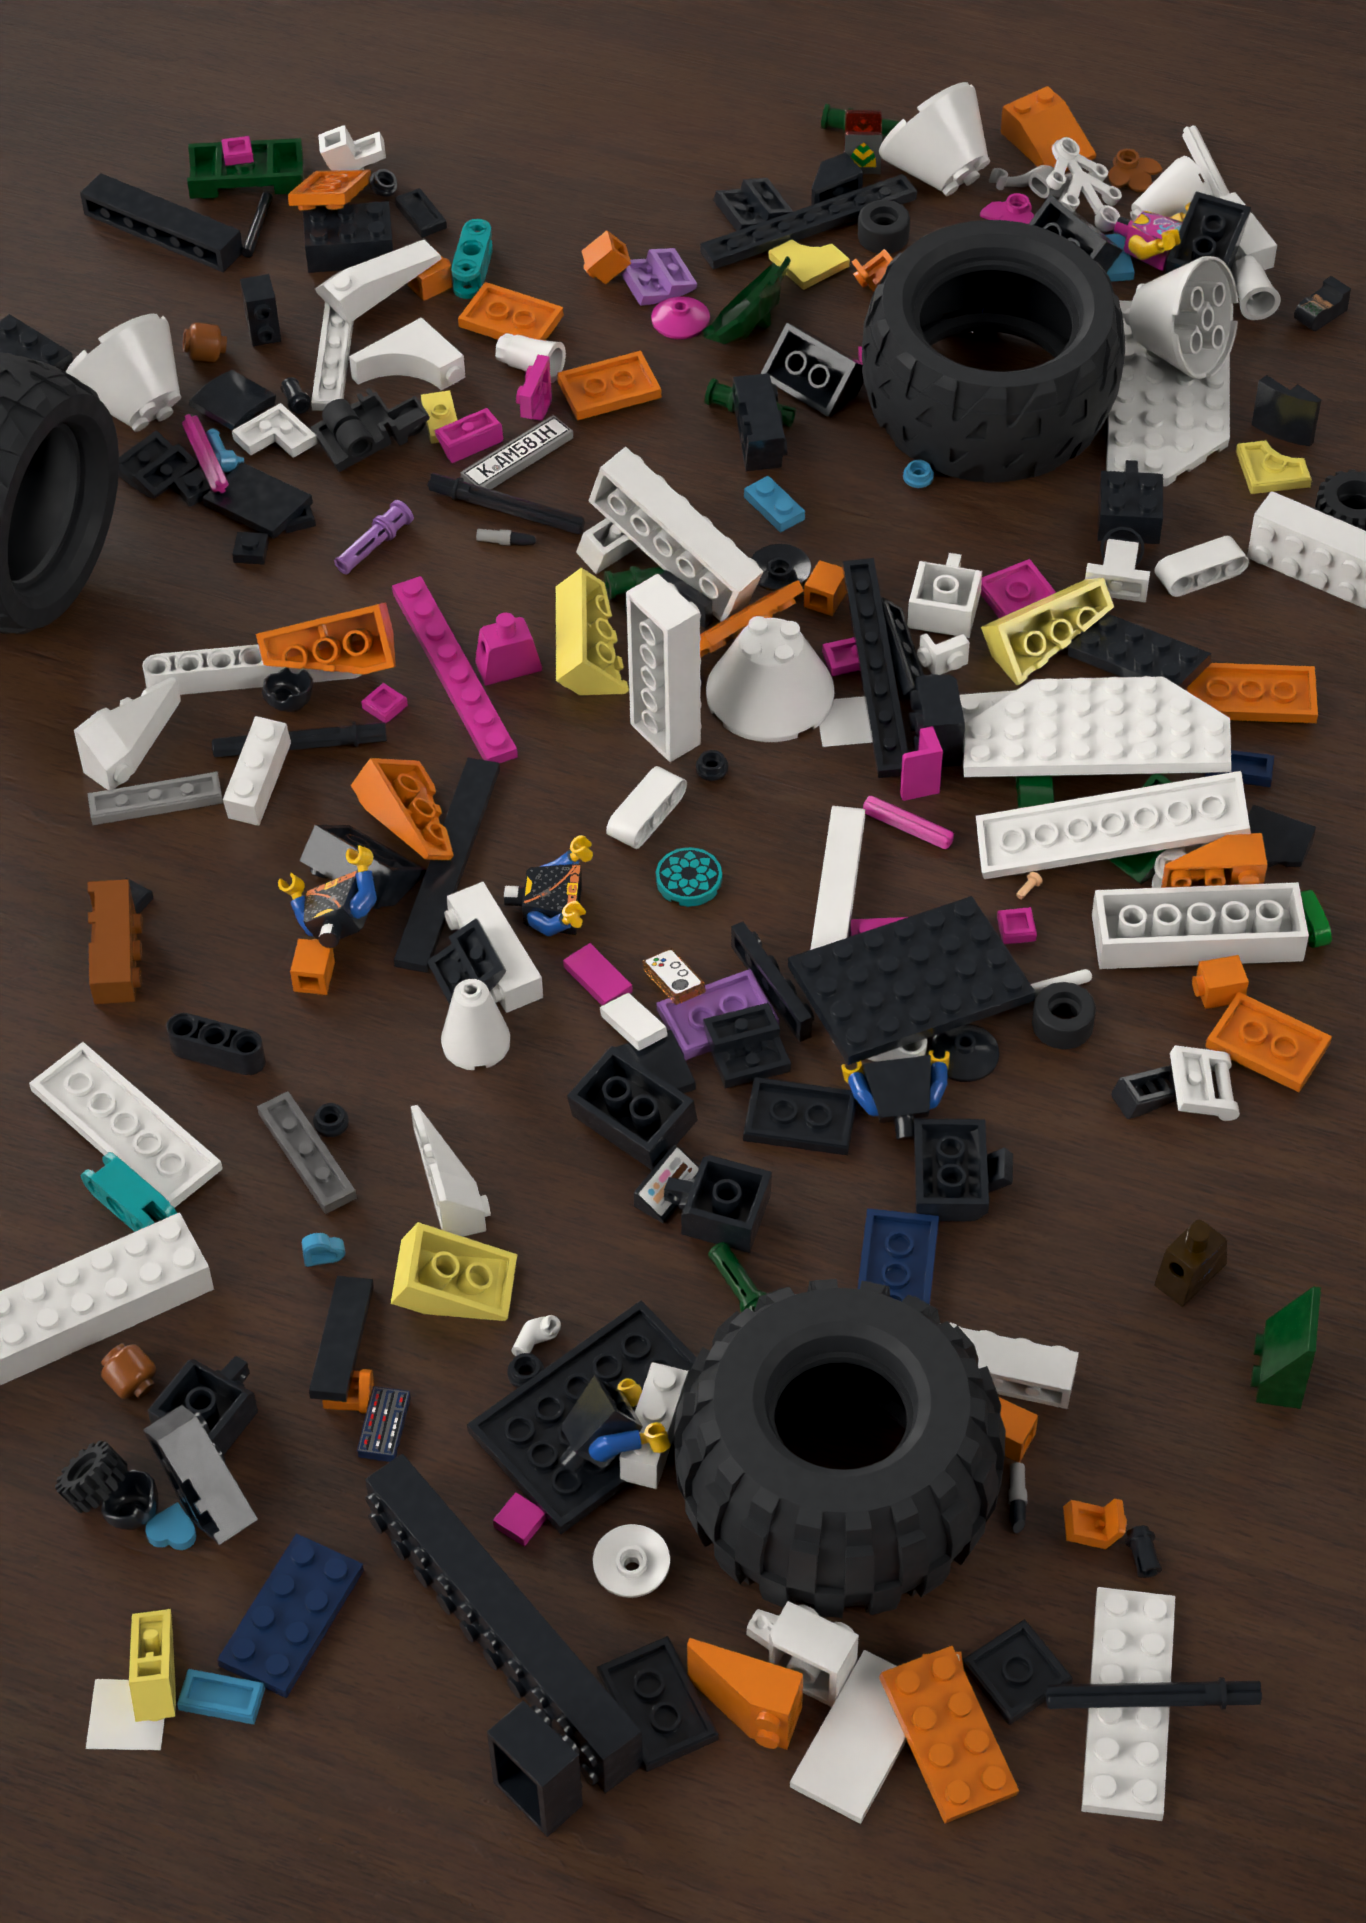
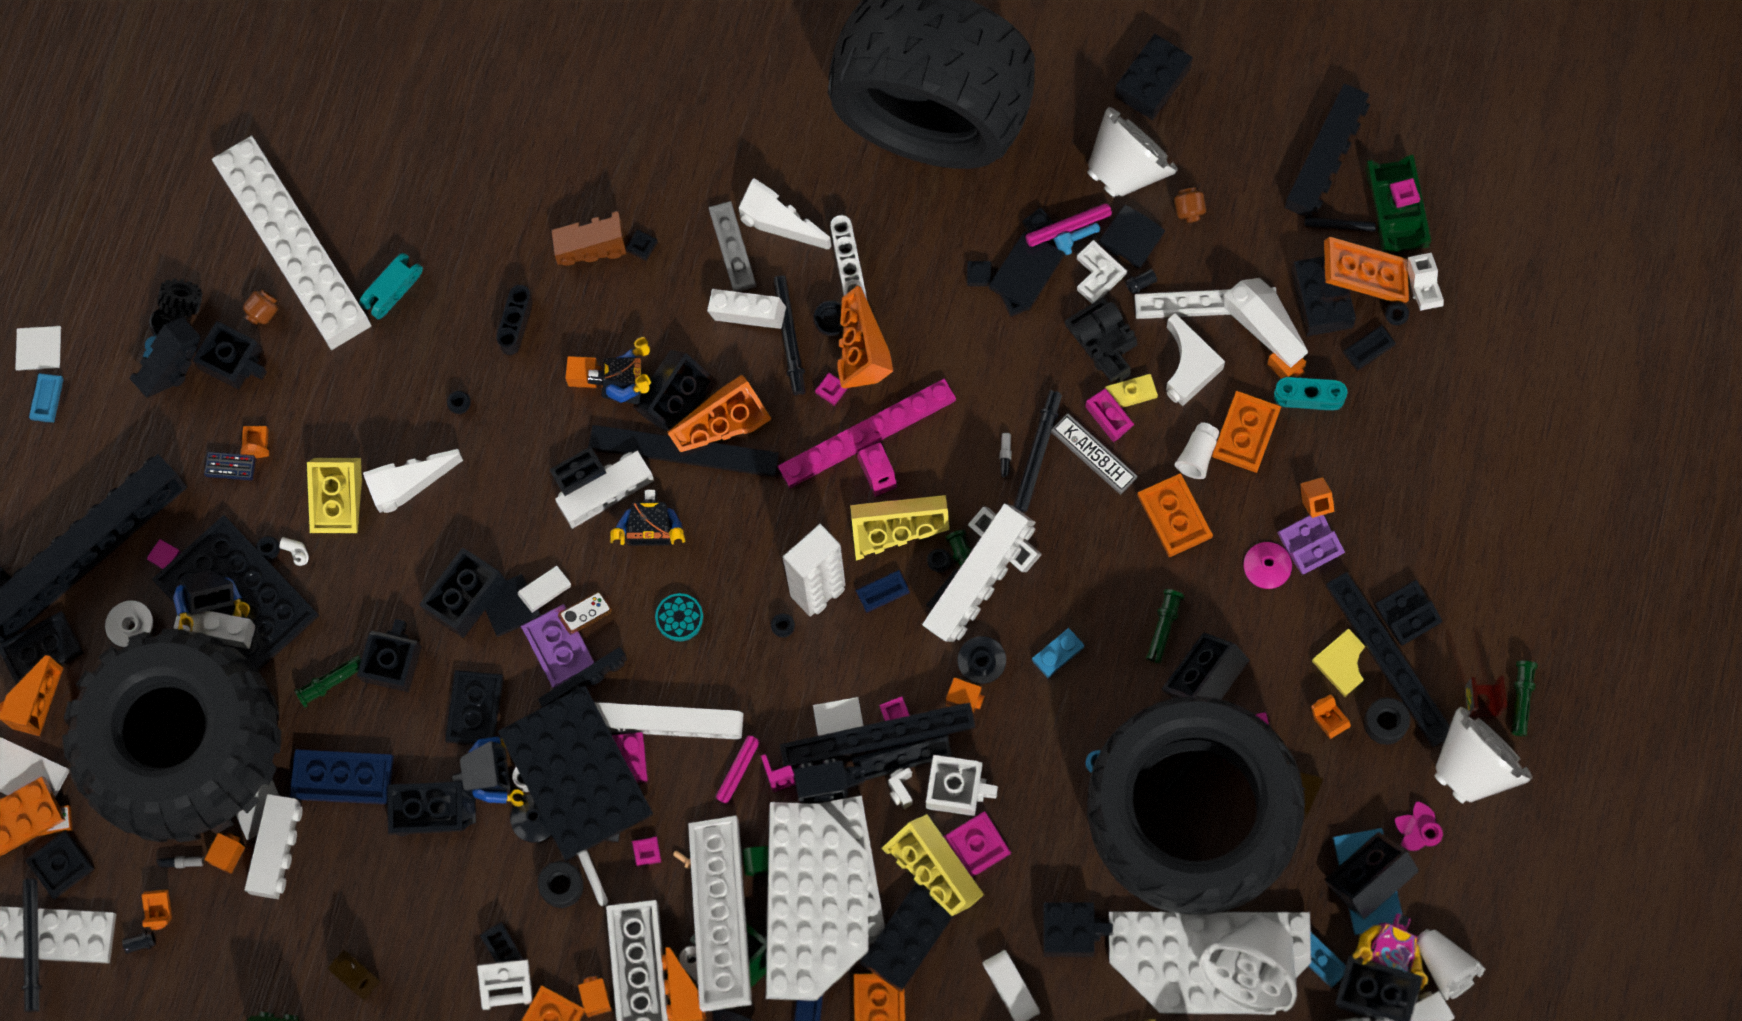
camera: 90 degrees right, 20 degrees up
(125, 1122) = (448, 274): white plate -> none
(152, 1666) = (59, 355): light yellow slope -> none
(155, 464) = (1058, 192): black slope -> none
(260, 310) = (1219, 240): black brick -> none
(290, 1615) = (99, 429): dark blue plate -> none
(307, 1152) = (431, 390): flat silver plate -> none
(321, 1249) = (352, 408): dark azure tile -> none
(341, 1339) = (287, 431): black tile -> none
(382, 529) = (1002, 364): medium lavender pin -> none
(474, 1027) = (531, 486): white cone -> none
(536, 392) = (1150, 458): dark pink plate -> none
(597, 974) = (587, 562): dark pink tile -> none
(646, 807) = (737, 581): white beam -> none
(650, 1193) = (418, 626): slope -> none
(732, 626) = (908, 629): orange plate -> none
(746, 1045) = (527, 667): black slope -> none
(749, 307) = (1257, 607): dark green piece -> none
(759, 422) = (1129, 631): black wedge -> none
(770, 683) = (863, 663): white cone -> none
(808, 1645) = (47, 736): white hinge -> none
(835, 178) = (1439, 676): black slope -> none
(999, 1169) = (426, 841): black plate -> none
(1035, 179) = (1457, 859): light grey piece -> none
(1038, 122) = (1526, 857): orange slope -> none
(1067, 155) = (1455, 886): white plant -> none
(1119, 567) = (1006, 921): white piece -> none
(1132, 170) = (1486, 934): dark orange plate -> none
(1204, 160) = (1506, 998): white axle -> none

